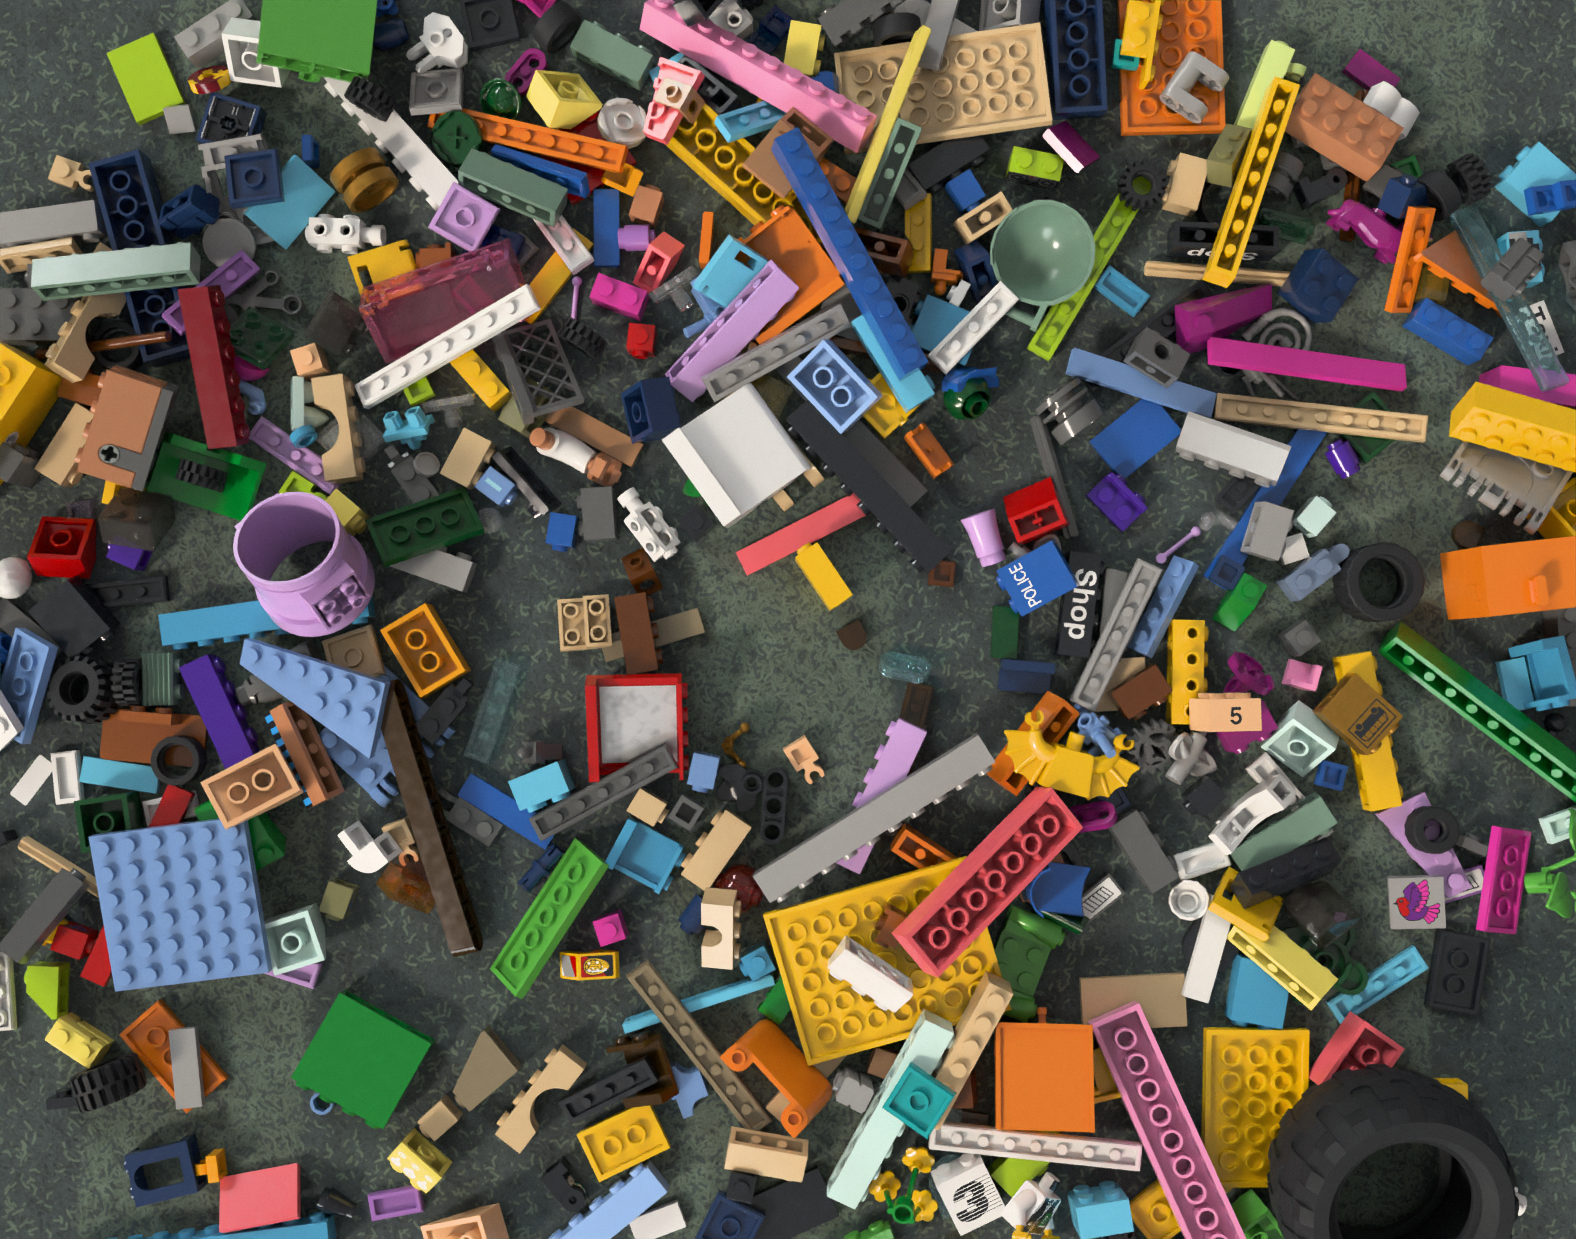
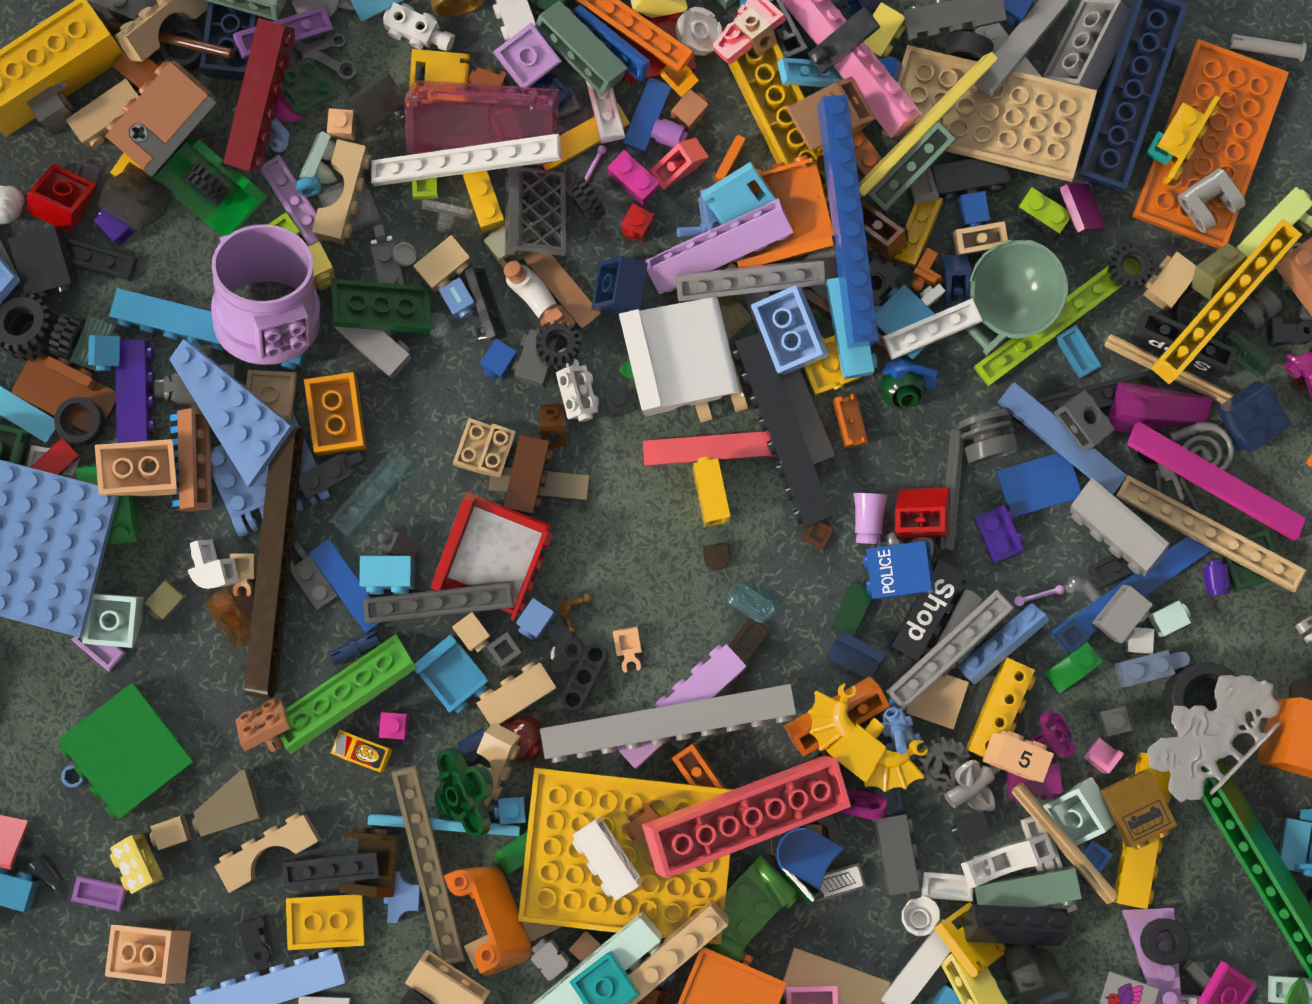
camera: 20 degrees right, 5 degrees down
(171, 683) = (103, 351): none -> dark azure brick
(408, 431) = (402, 219): medium azure hips -> none
(484, 980) = (263, 725): none -> nougat plate
(614, 508) = (558, 358): none -> black tyre
(675, 289) = (684, 191): clear tile -> none
(704, 966) = (463, 792): none -> dark green plant
(771, 72) = (844, 40): none -> black hinge
(1140, 692) = (951, 710): reddish brown brick -> none
(1298, 775) = (1064, 843): none -> tan axle
(1400, 616) = (1209, 735): none -> light grey plant

